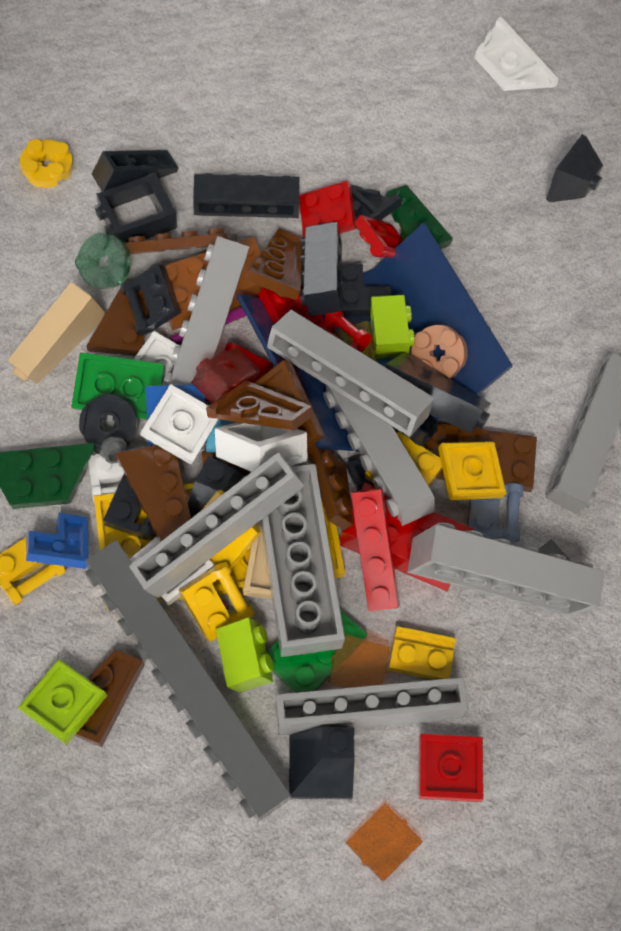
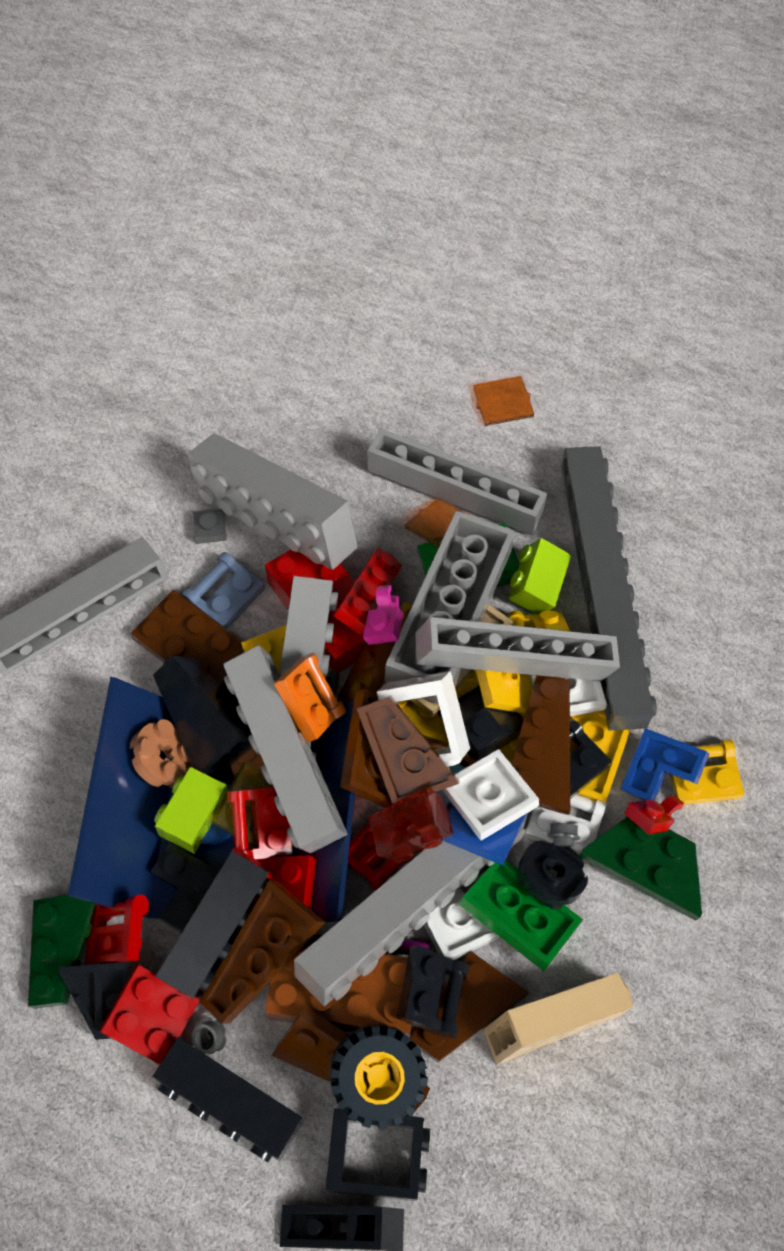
camera: 145 degrees left, 0 degrees up
(51, 496) = (654, 816): none -> red plate
(62, 701) = (723, 623): lime tile -> none
(88, 261) = (468, 1076): clear green plate -> none
(116, 678) = (688, 613): reddish brown wing -> none
(156, 224) = (378, 1075): none -> black wheel
(282, 220) = (202, 1039): none -> dark grey plate
(322, 763) = (522, 465): black slope -> none
(340, 501) = (385, 622): none -> dark pink plate
(356, 404) = (303, 700): none -> orange plate
(422, 654) = (380, 510): yellow plate -> none
(451, 768) = (417, 414): red plate -> none
(471, 470) = (223, 620): yellow plate -> none

